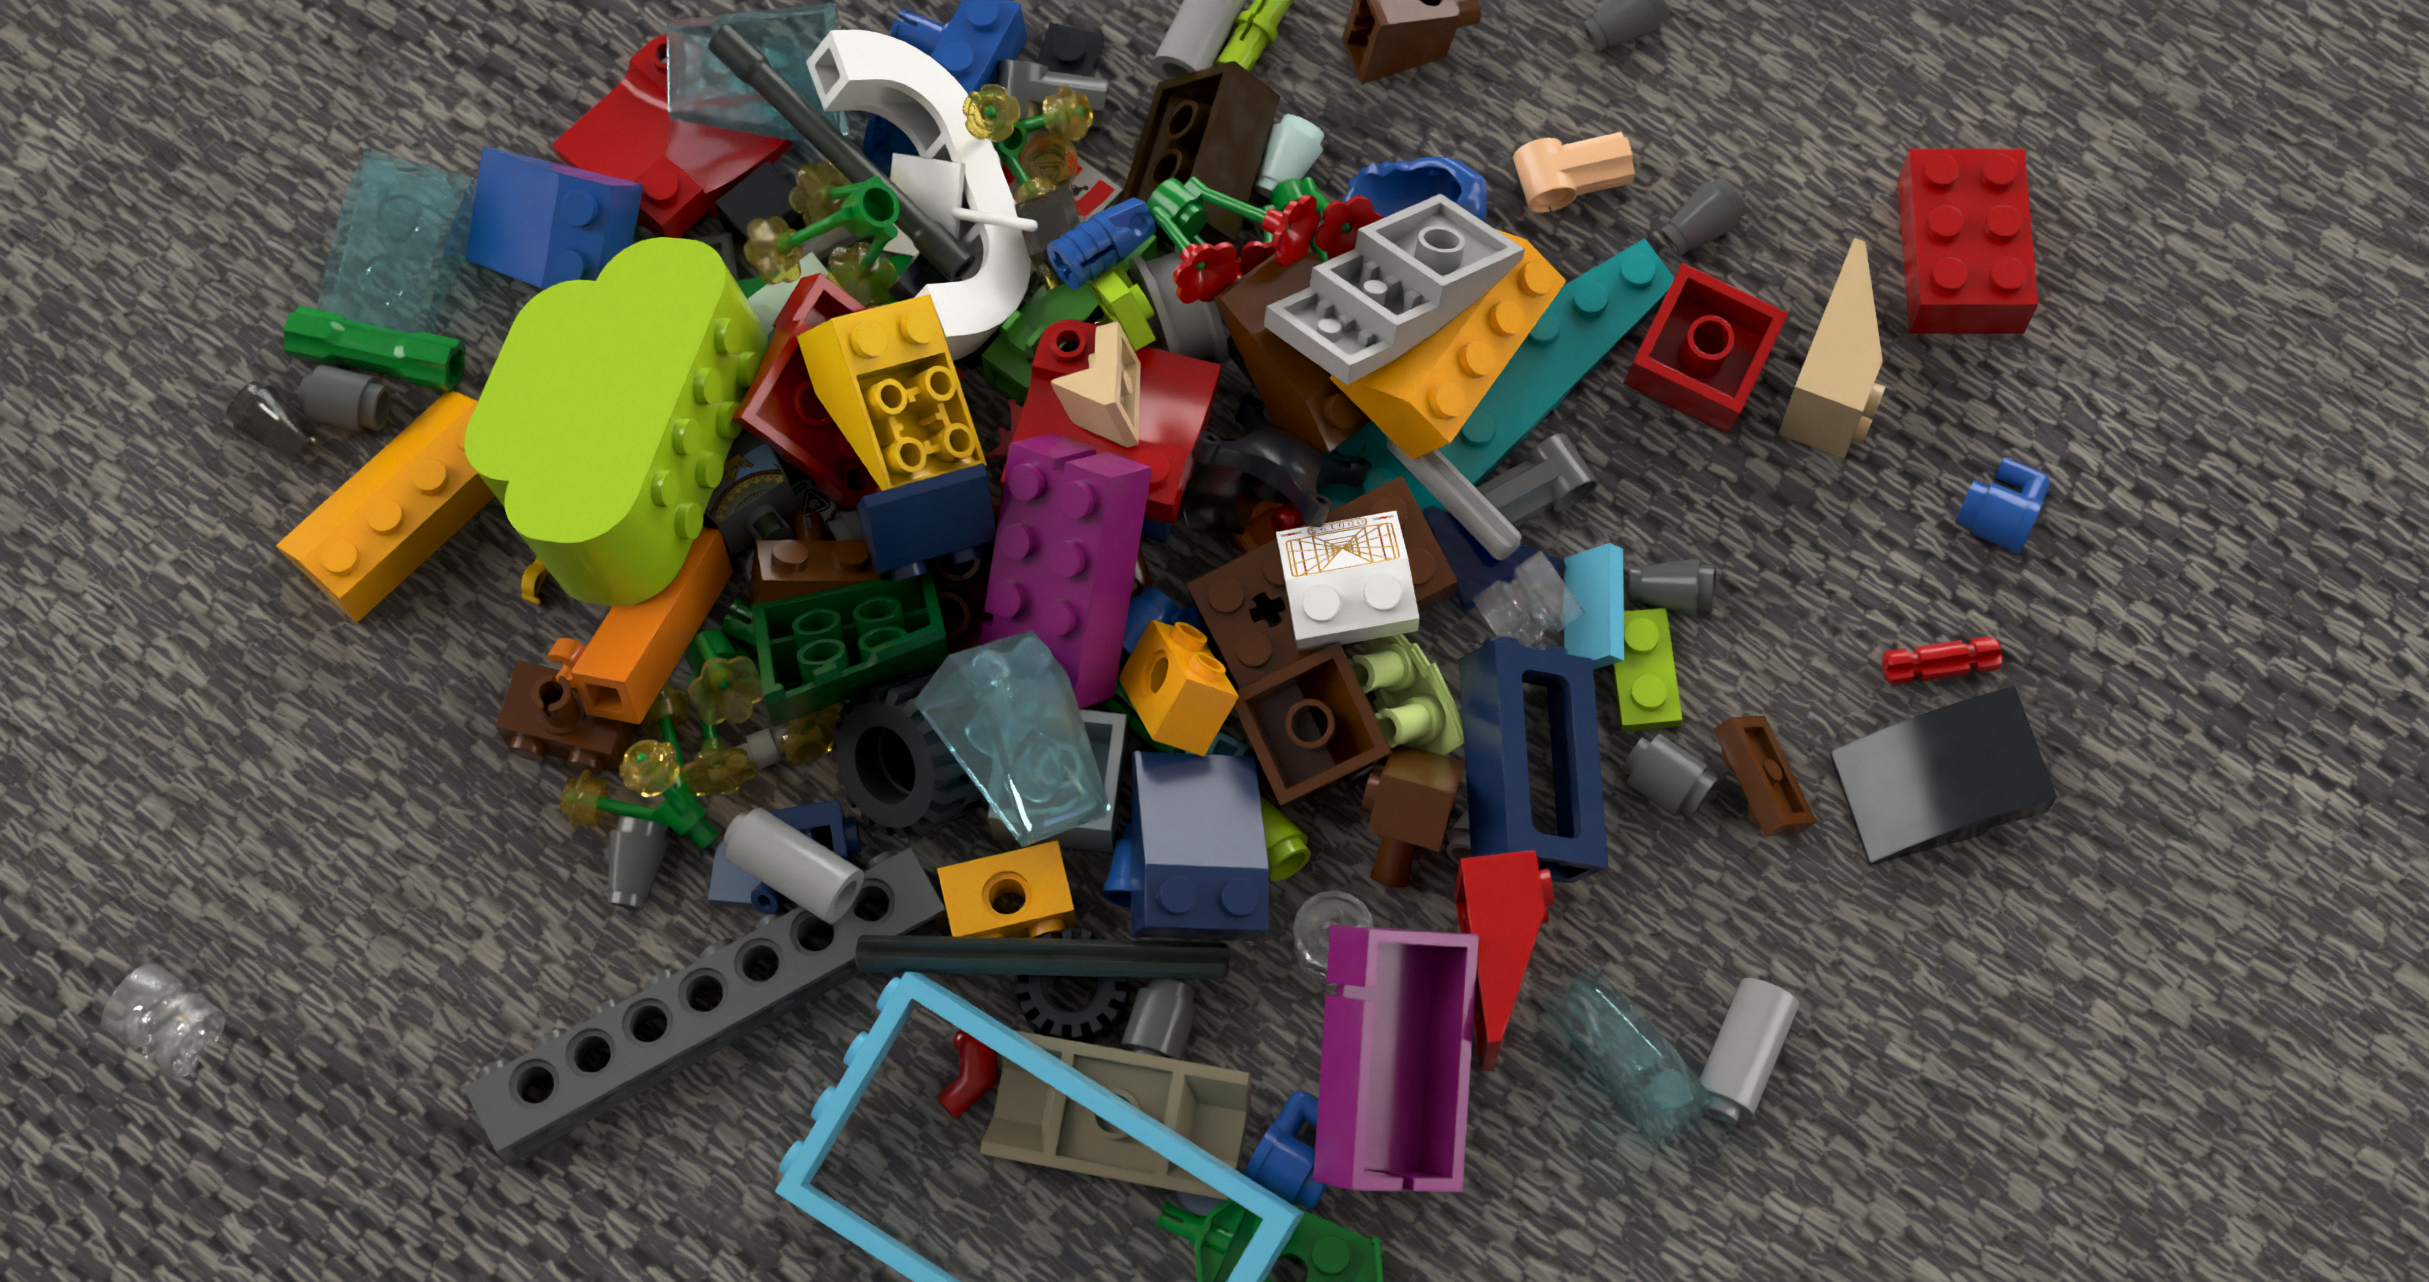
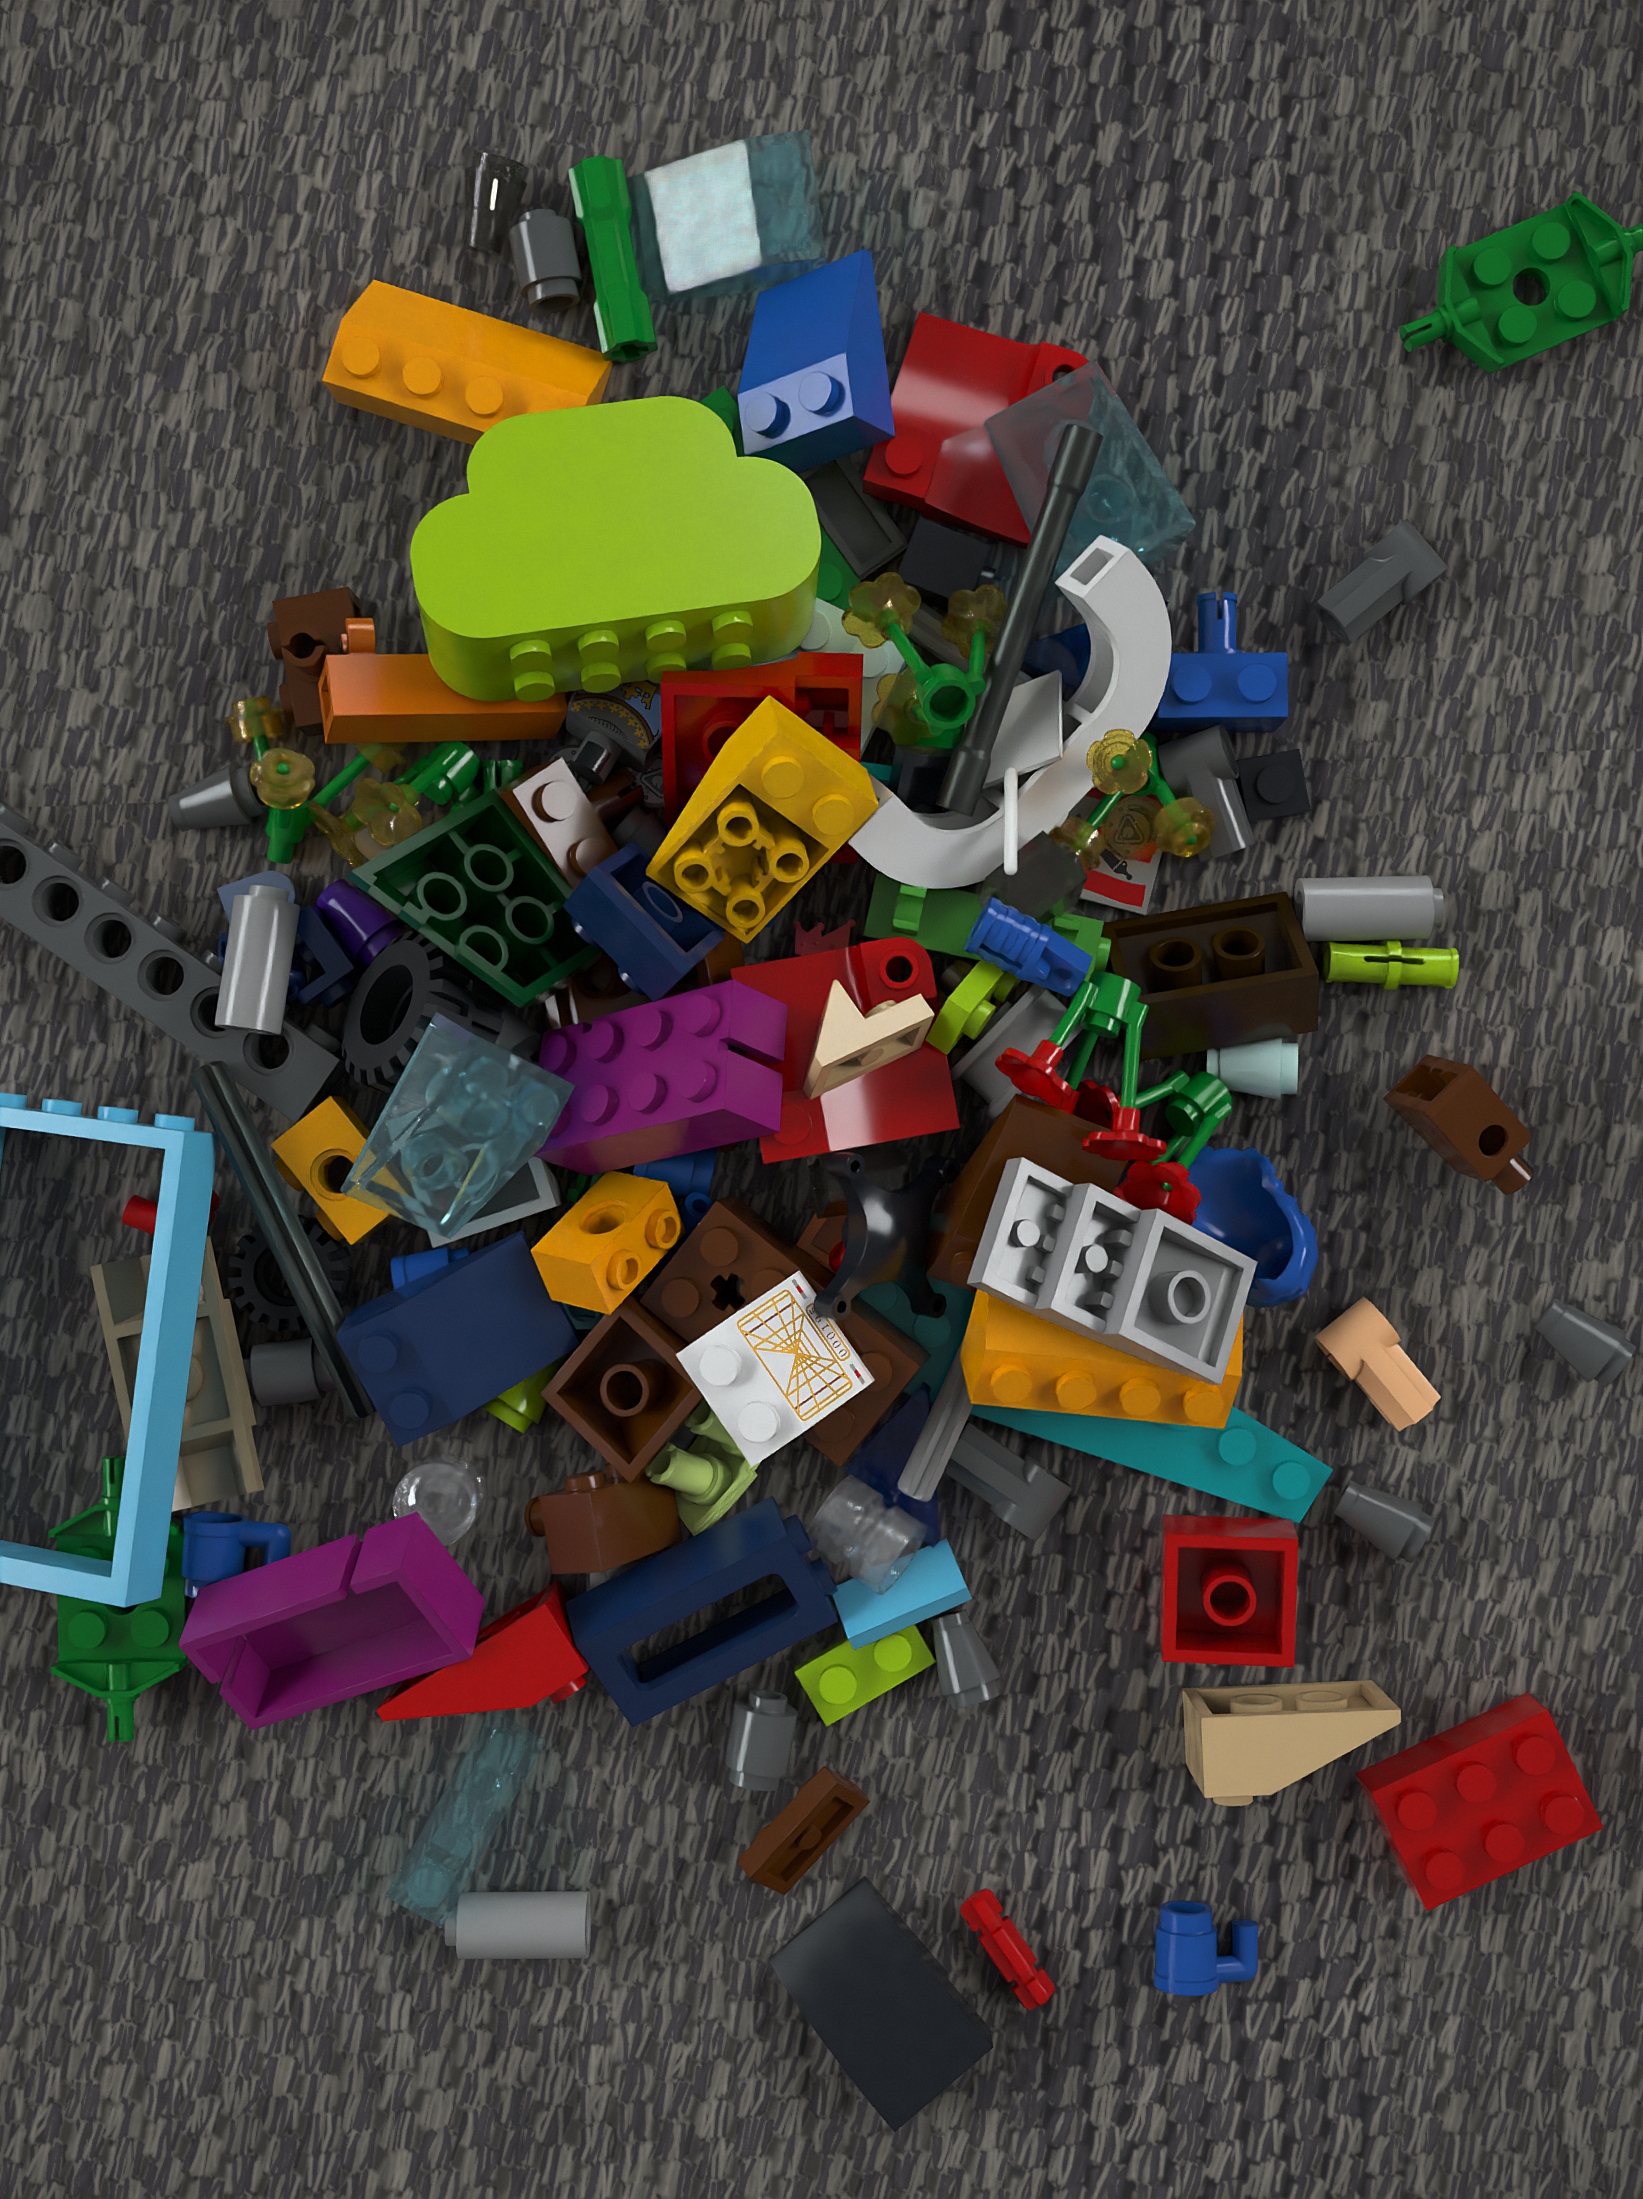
camera: 60 degrees right, 20 degrees up
(806, 784) = (359, 921): none -> dark purple cone

